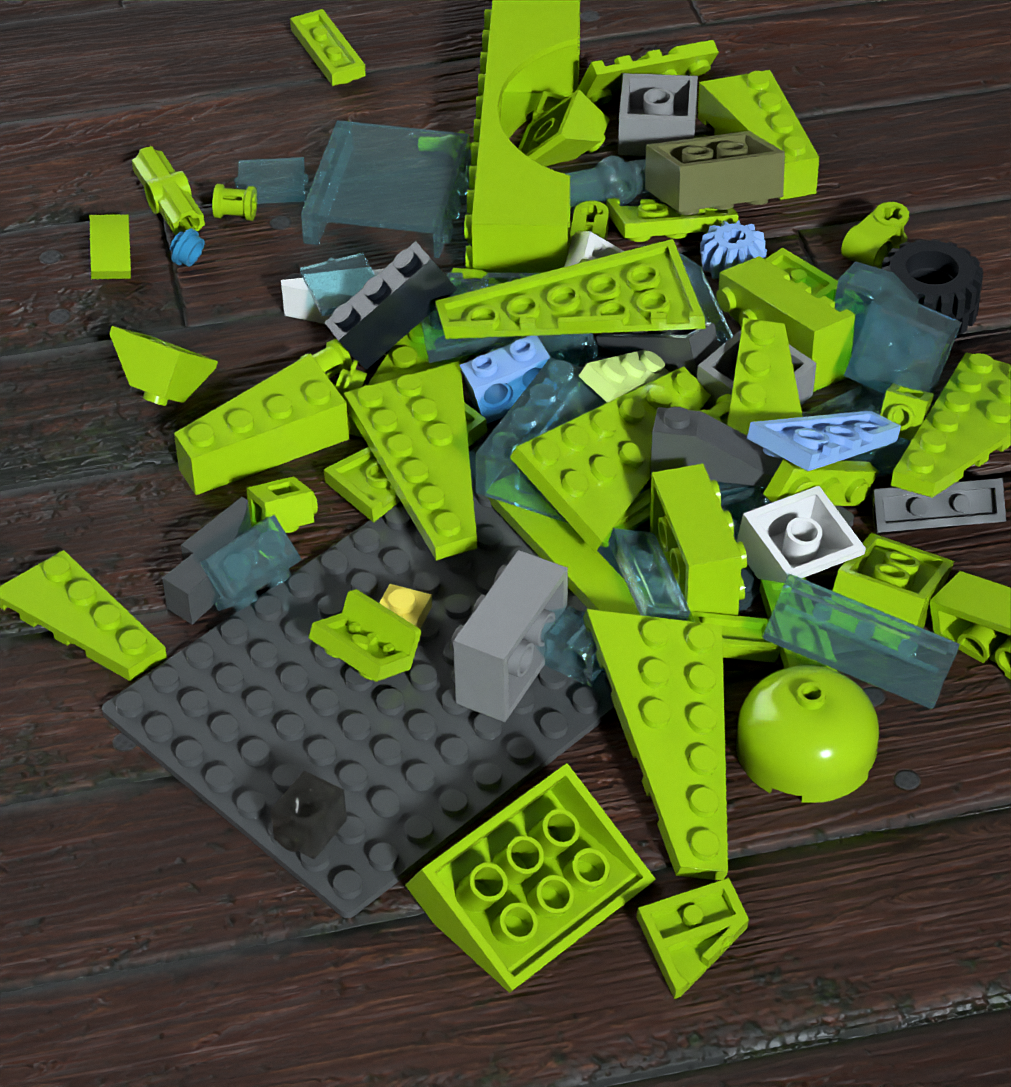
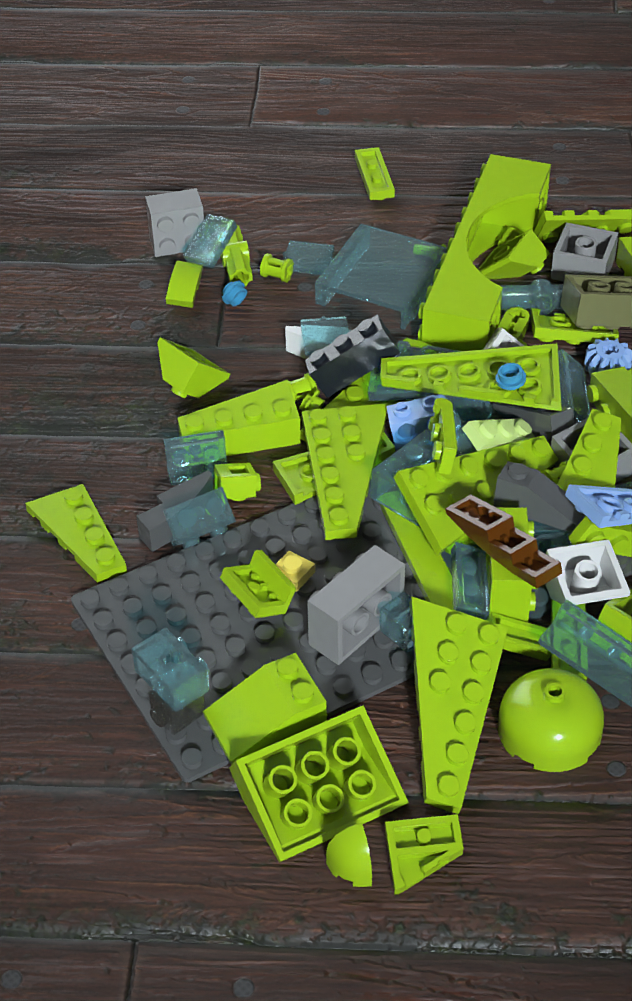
camera: 15 degrees right, 0 degrees up
(71, 161) = (173, 220): none -> light grey brick
(131, 179) = (210, 240): none -> clear light blue bracket
(211, 481) = (194, 455): none -> clear light blue bracket
(294, 769) = (171, 669): none -> clear light blue brick
(433, 797) = (266, 708): none -> lime slope
(563, 388) = (443, 435): none -> lime plate
(608, 961) = (350, 856): none -> lime brick
(626, 294) = (510, 376): none -> dark azure plate
(678, 505) = (496, 535): none -> reddish brown slope

